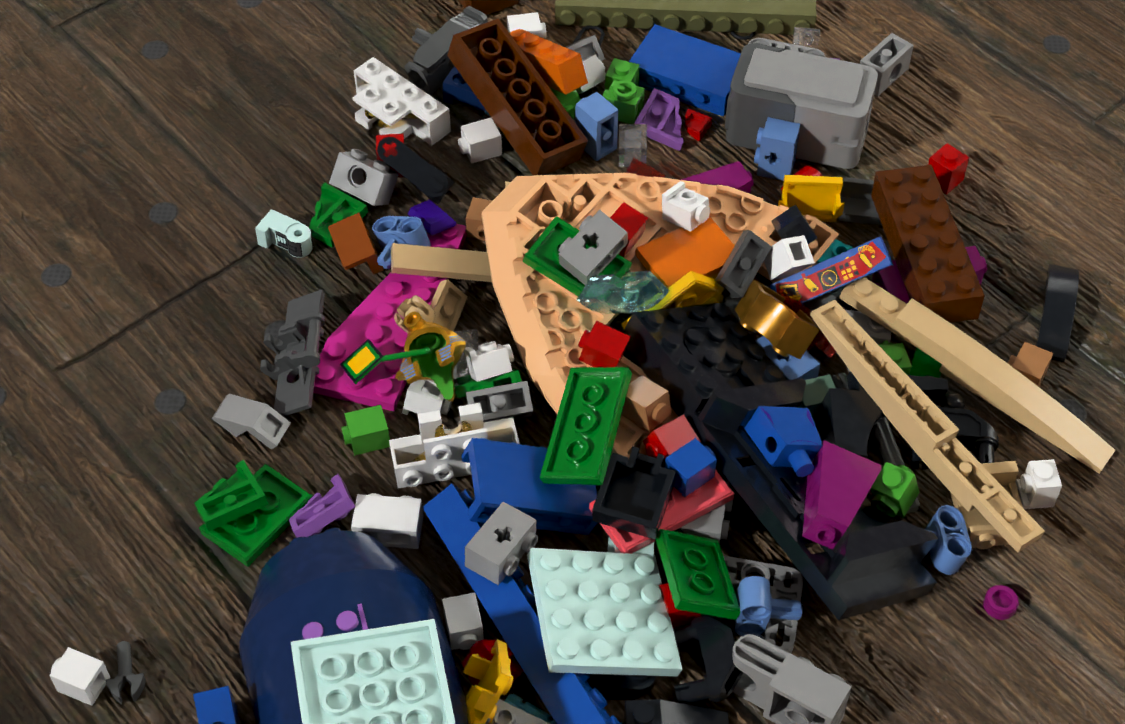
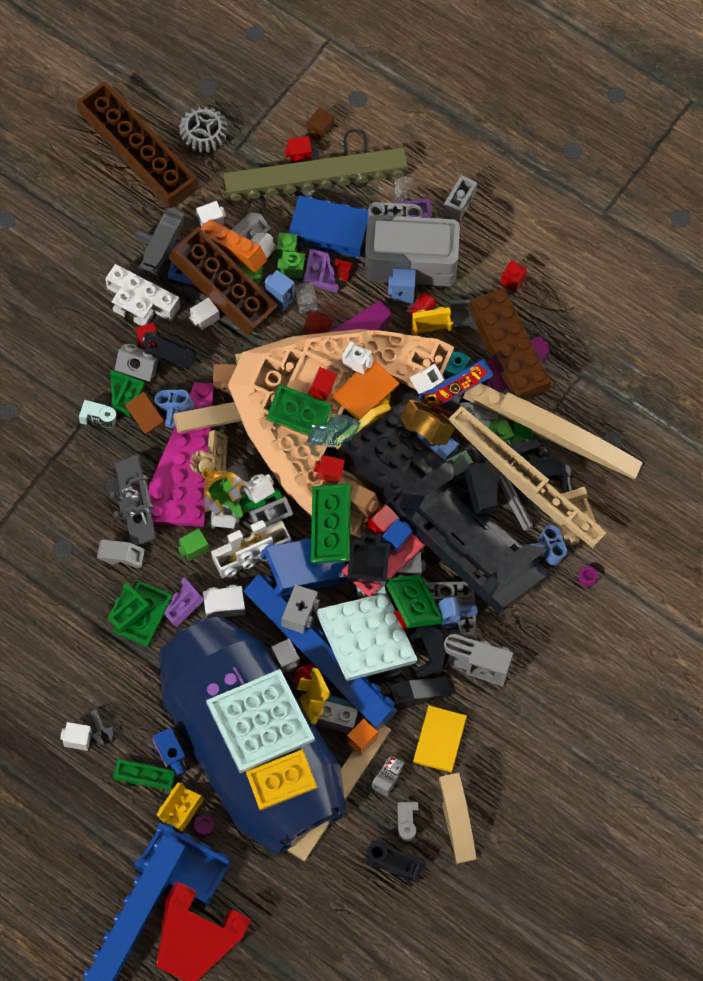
camera: 15 degrees left, 15 degrees up
(368, 357) = (180, 498): piece -> none
(432, 217) = (189, 382): dark purple tile -> none
(589, 262) = (318, 399): light grey brick -> none
(742, 264) = (400, 390): dark grey panel -> none
(786, 437) = (449, 505): blue torso -> none
(793, 224) = (426, 353): black panel -> none
(835, 492) = (484, 535): magenta slope -> none
(894, 490) = (517, 521): bright green brick -> none
(1032, 362) = (584, 416): medium nougat brick -> none
(1039, 484) = (600, 497): white brick -> none
(1058, 311) = (597, 370): black slope -> none

